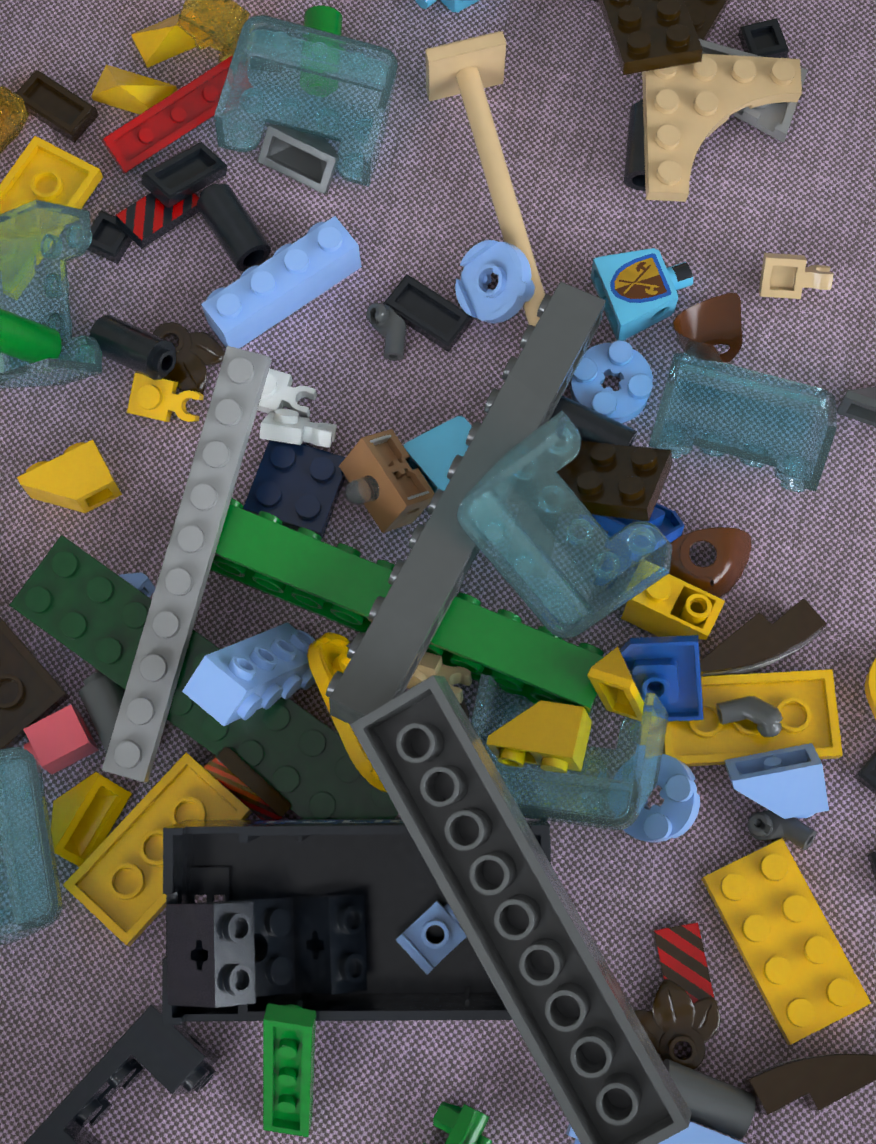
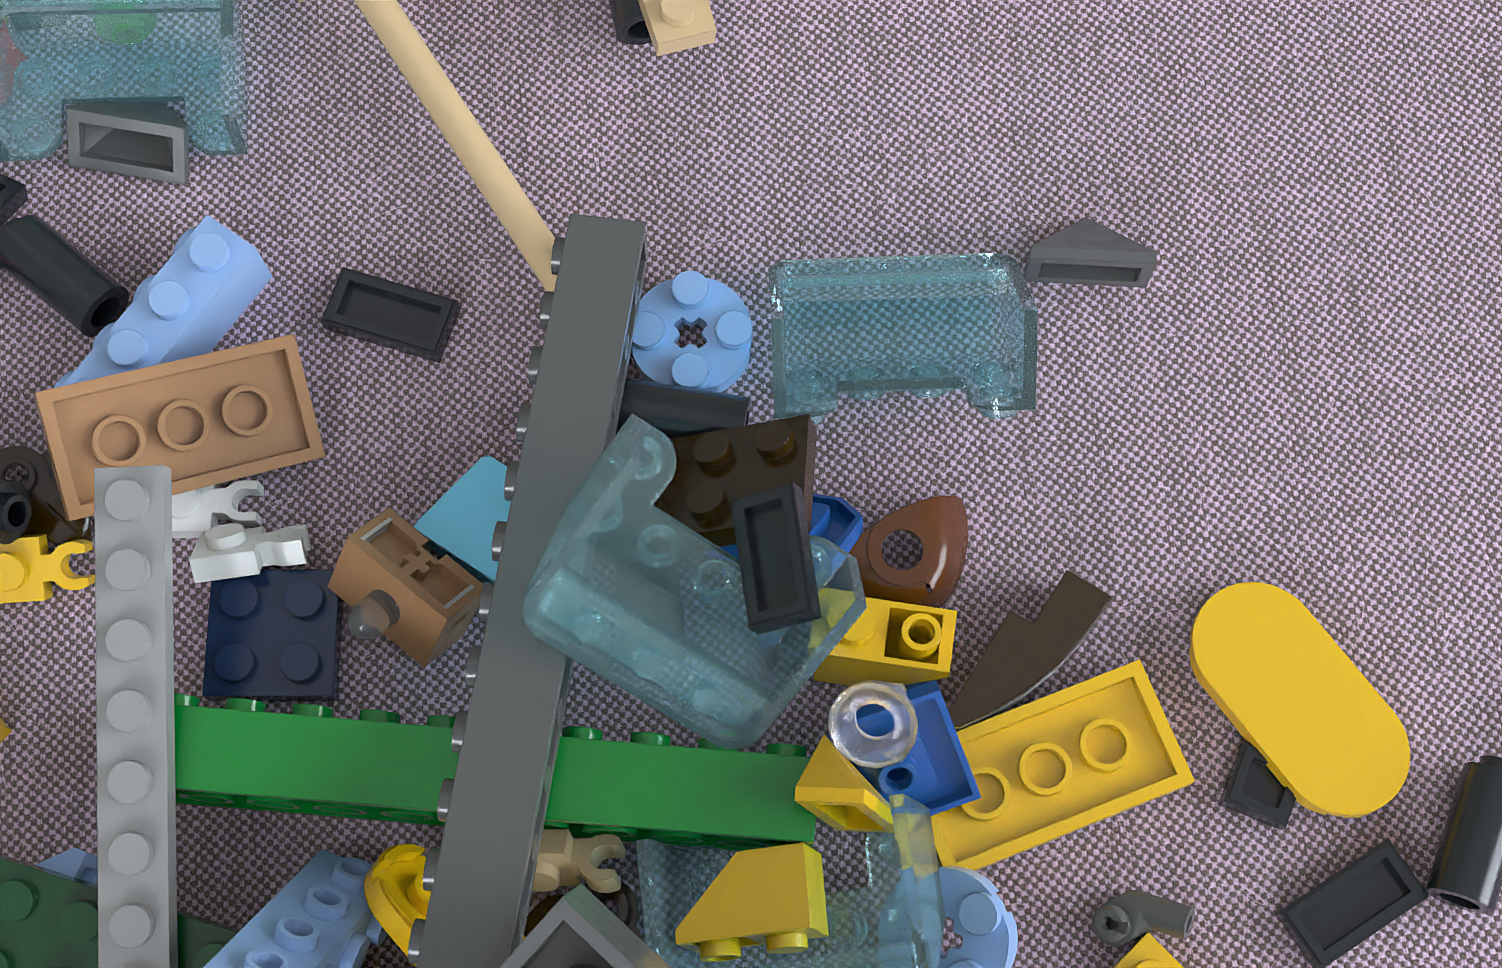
camera: 20 degrees left, 0 degrees up
(302, 337) = (198, 415): none -> medium nougat plate
(391, 327) = (343, 353): dark grey arm -> none
(513, 285) = (503, 236): light blue plate -> none
(622, 528) = (775, 559): none -> black tile
(638, 289) = (686, 188): medium azure torso -> none
(638, 660) = (868, 749): none -> clear piece
(711, 324) = (805, 207): reddish brown piece -> none
(753, 709) = (1050, 758): dark grey arm -> none
(782, 780) = (1121, 850): light blue slope -> none
(787, 274) = (892, 104): tan plate -> none

